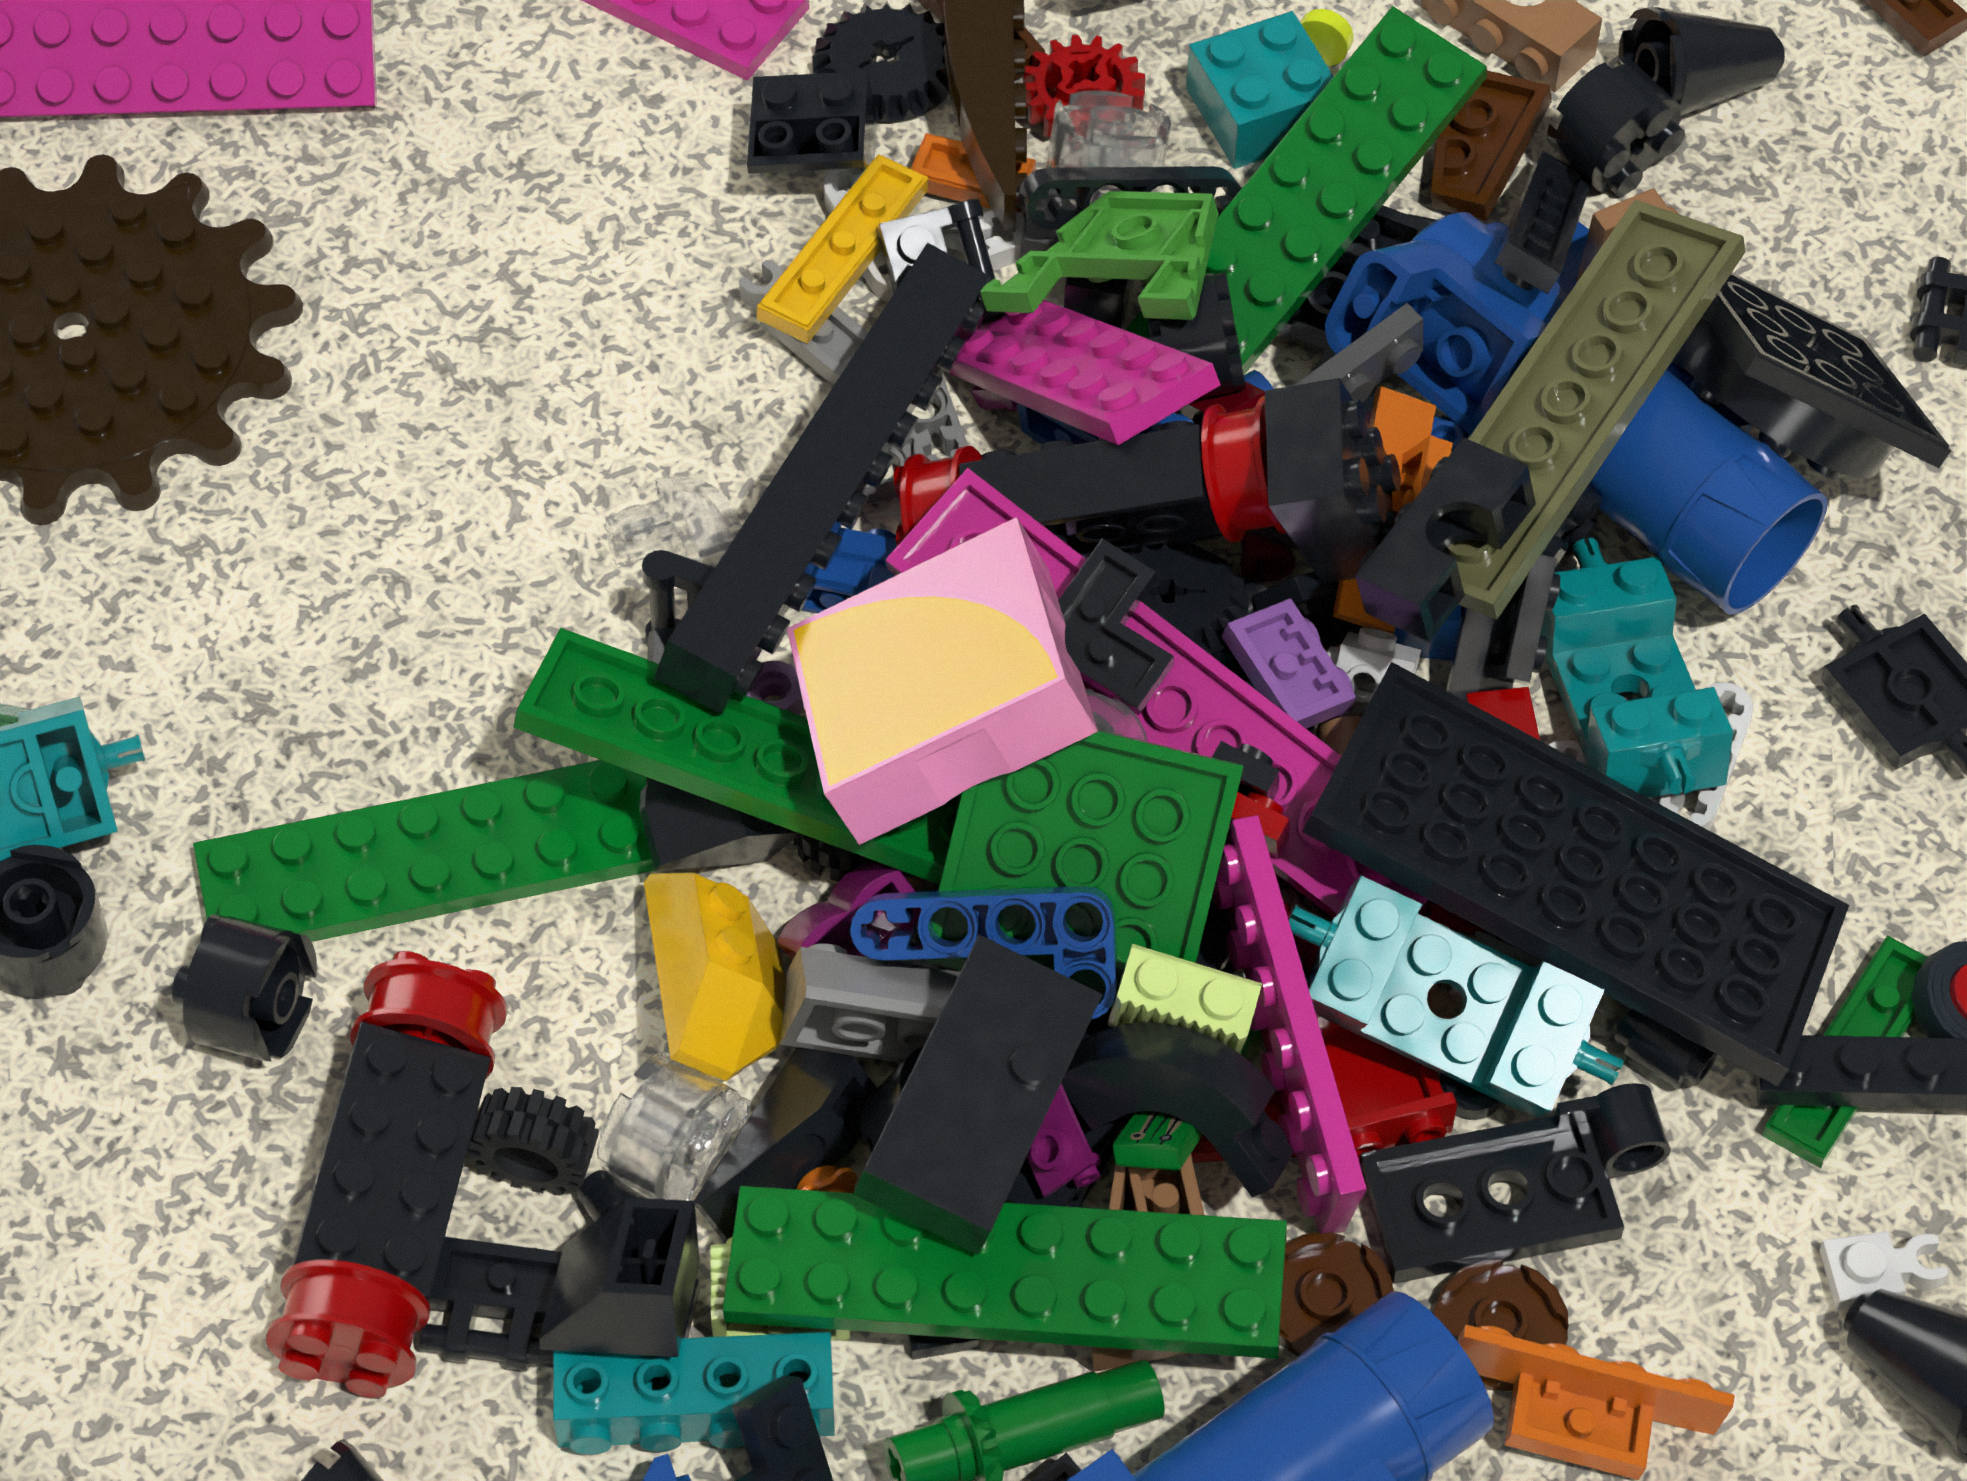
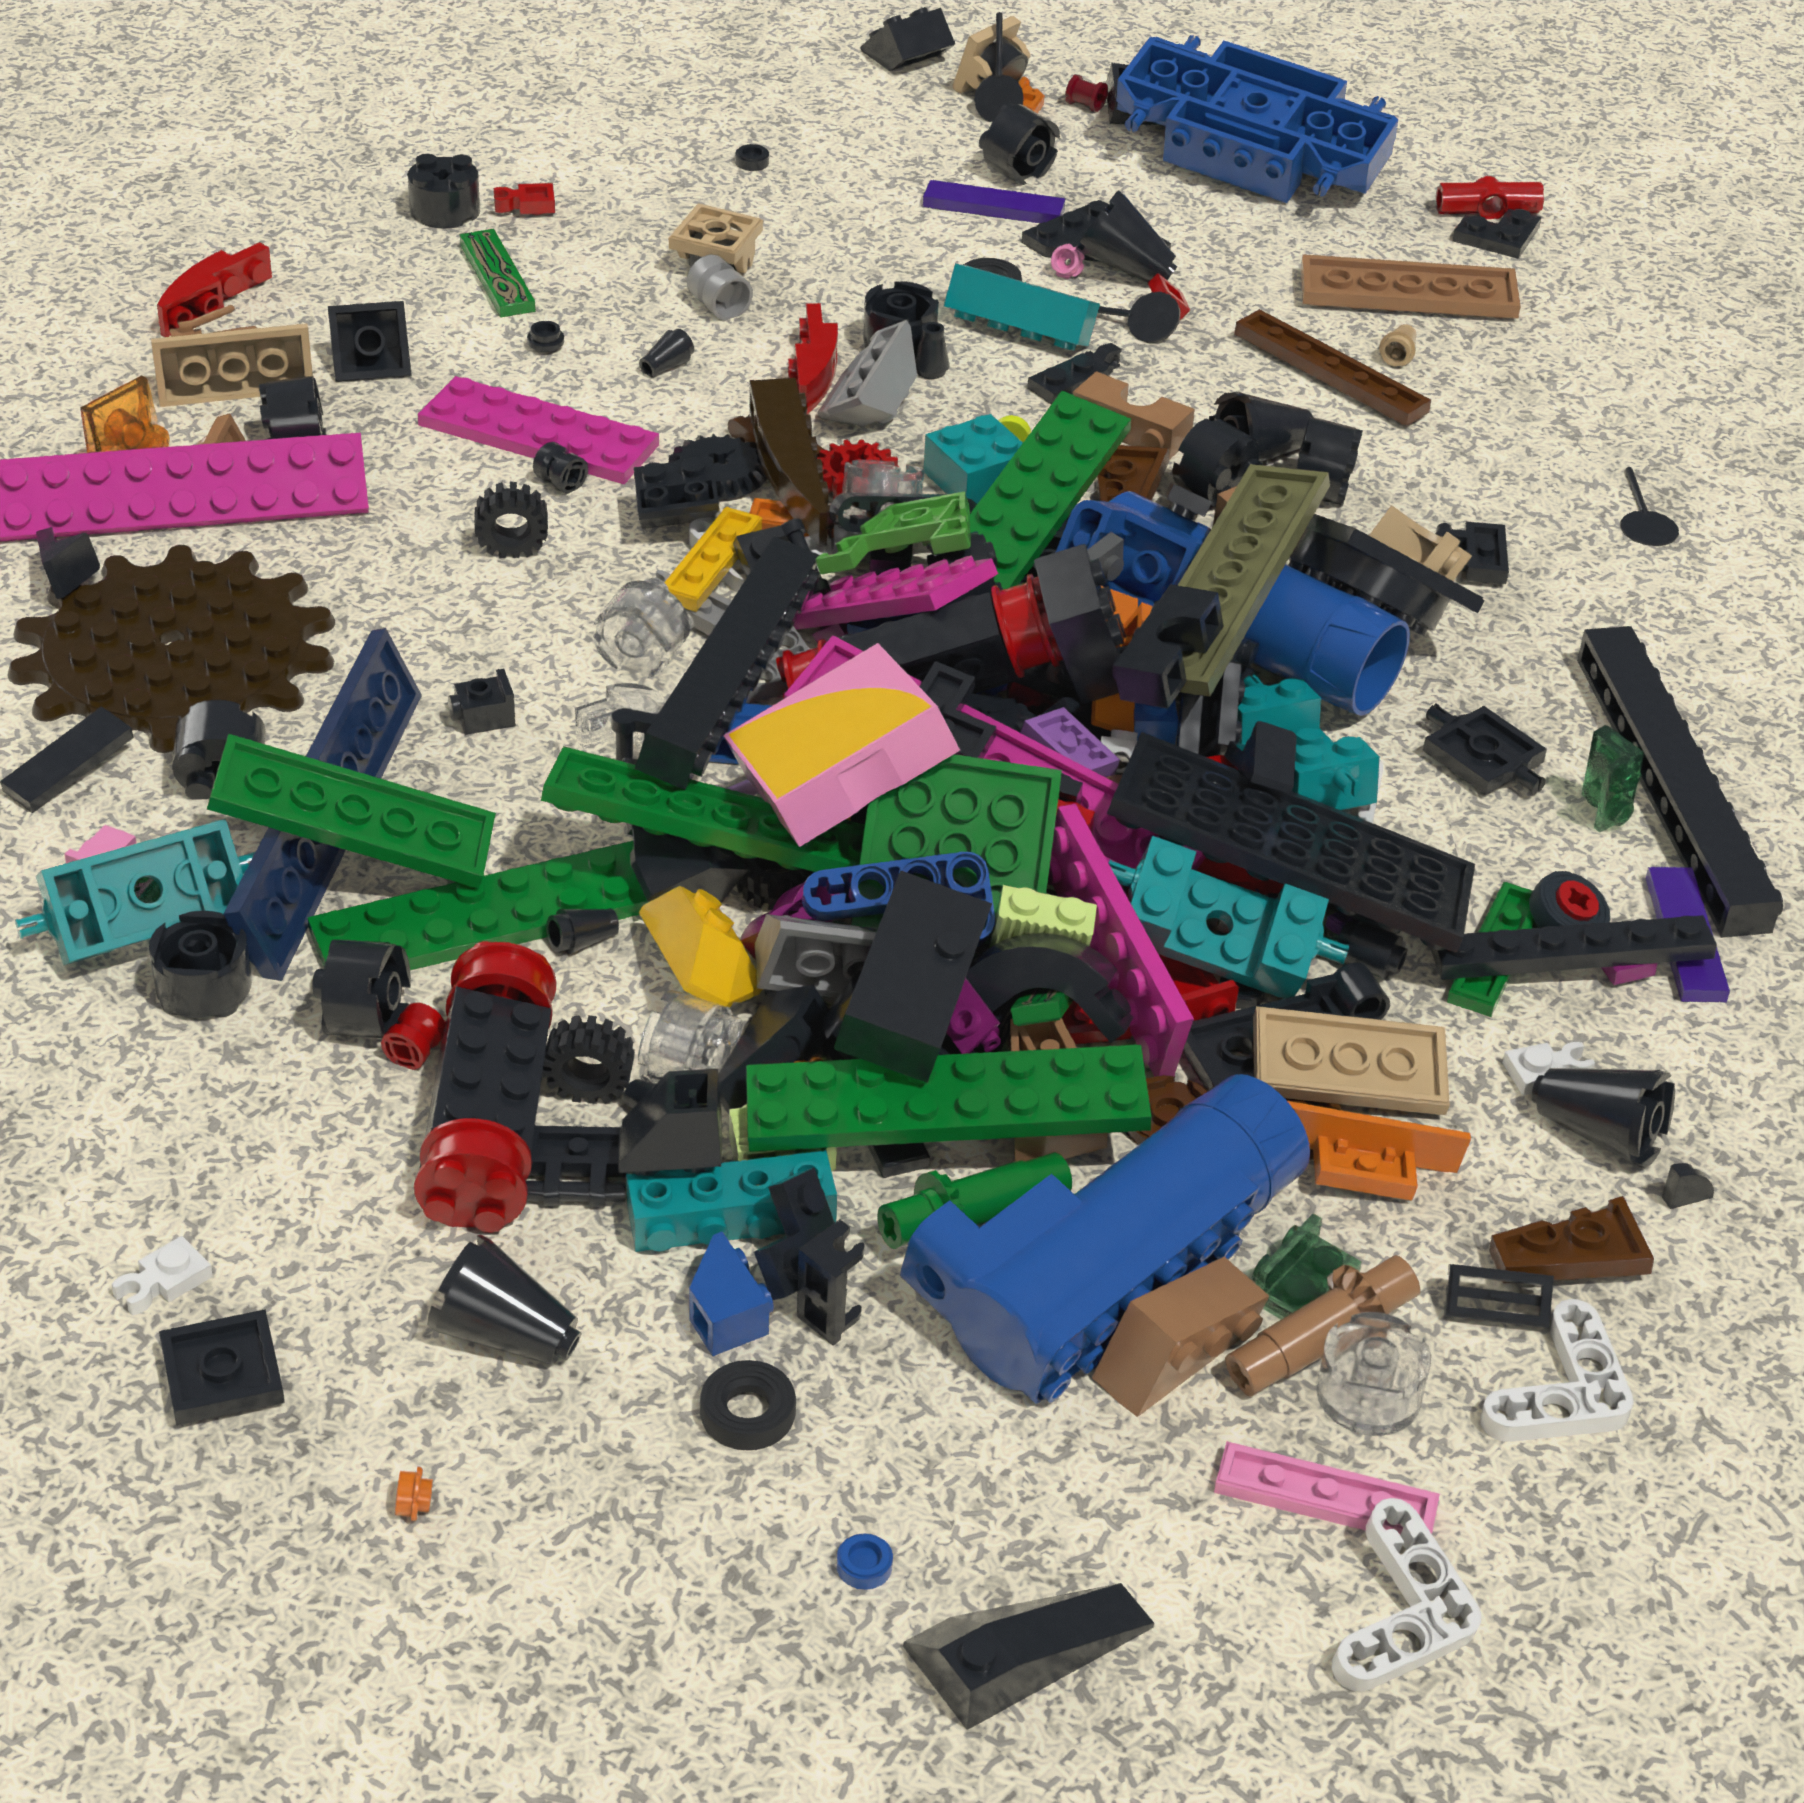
camera: 10 degrees left, 15 degrees down
(104, 551) = (201, 742): none -> black brick
(237, 657) = (294, 872): none -> dark blue plate
(261, 701) = (352, 811): none -> green plate
(308, 1065) = (411, 1039): none -> red wheel
(483, 485) = (483, 704): none -> black brick
(562, 897) = (579, 928): none -> black cone
(584, 177) = (511, 502): none -> black tyre
(651, 48) = (557, 465): none -> black wheel
(722, 376) = (642, 627): none -> clear brick
(1564, 723) = (1266, 756): none -> black slope
(1594, 1244) = (1352, 1060): none -> tan tile
(1781, 132) = (1333, 450): none -> black brick
(1888, 315) = (1420, 544): none -> tan arch

